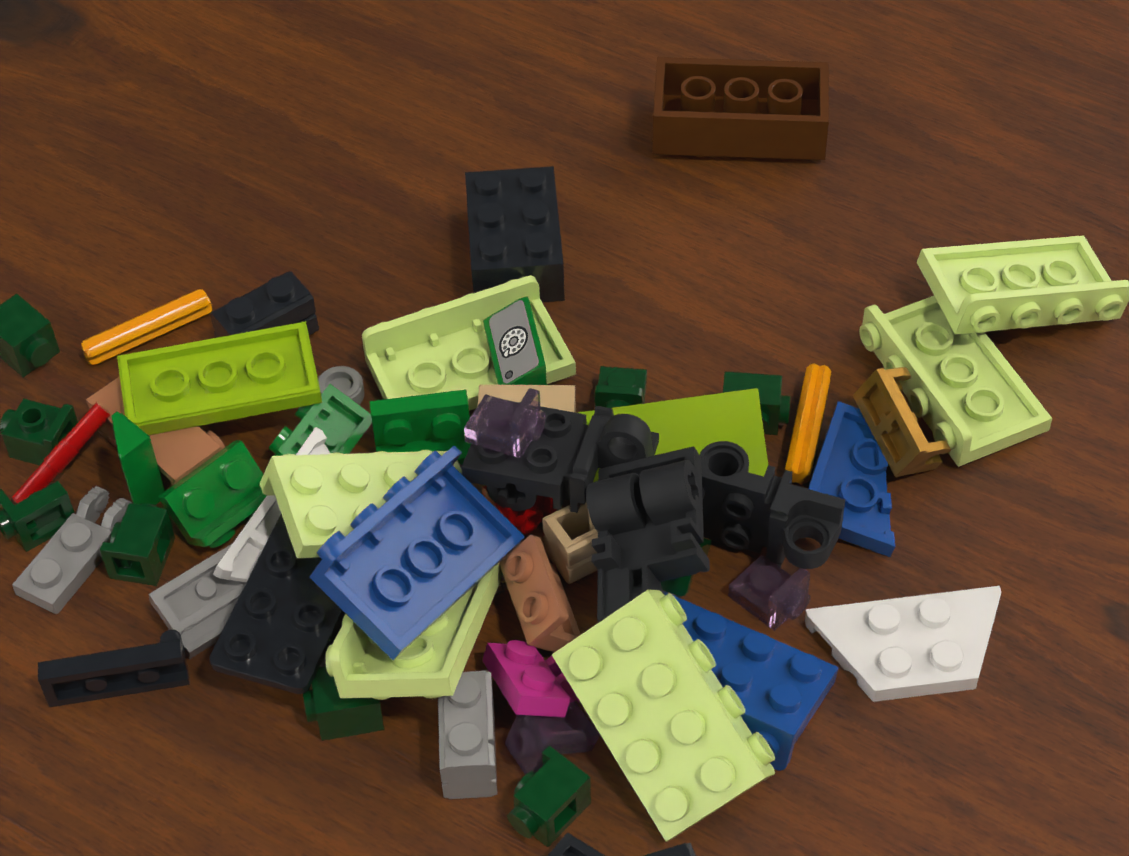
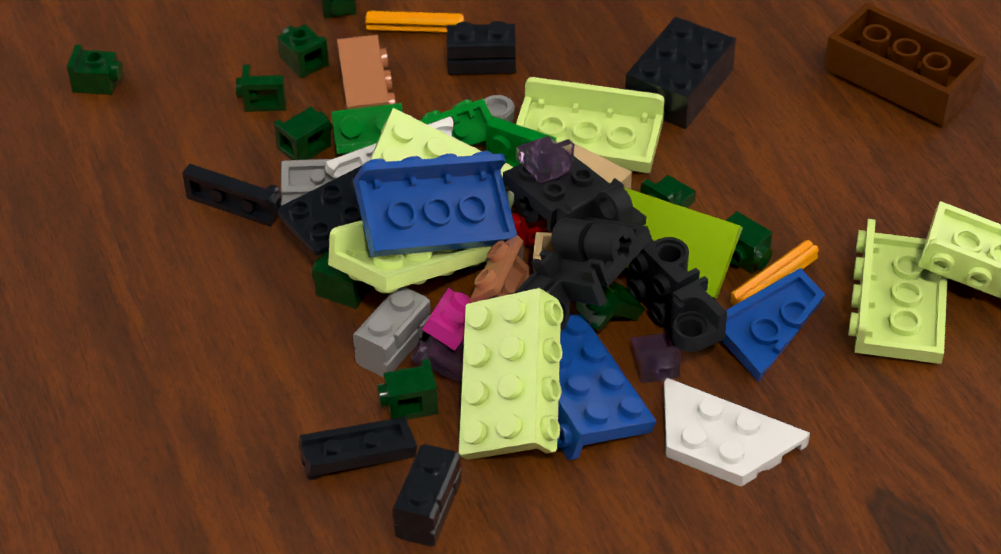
camera: 35 degrees right, 5 degrees down
(63, 452) = (307, 61): red piece -> none
(70, 553) = (258, 125): light grey hinge -> none
(137, 461) = (330, 83): green slope -> none
(219, 379) = (419, 63): lime tile -> none
(515, 345) = (618, 132): slope -> none
(896, 425) = (828, 300): pearl gold hinge -> none

